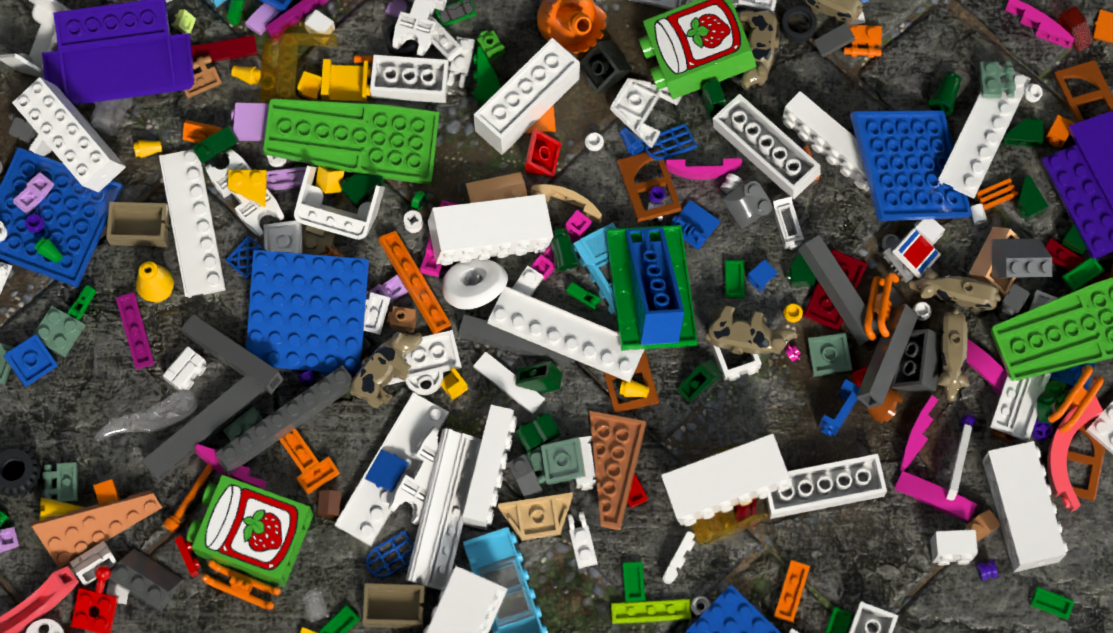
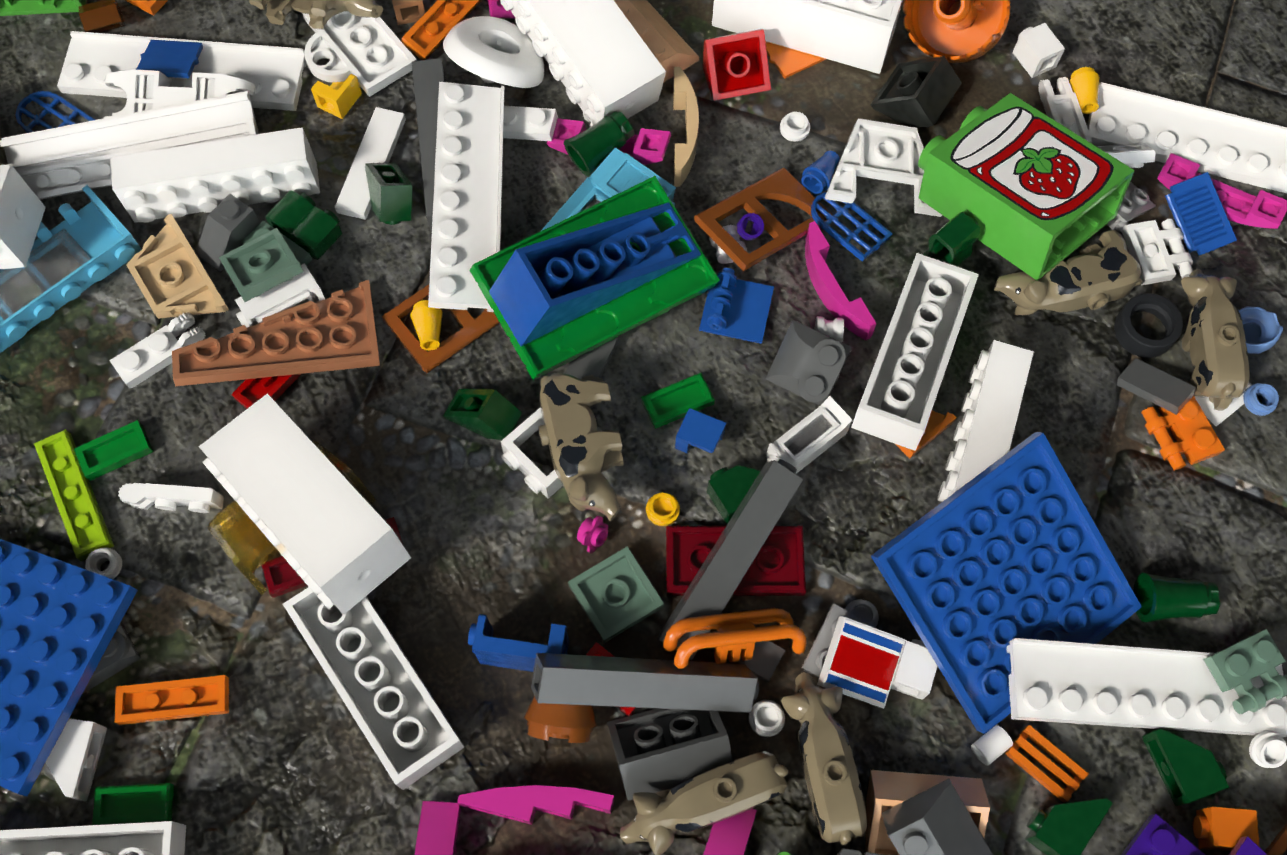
camera: 65 degrees right, 5 degrees down
(580, 294) = (548, 200): green bar -> none

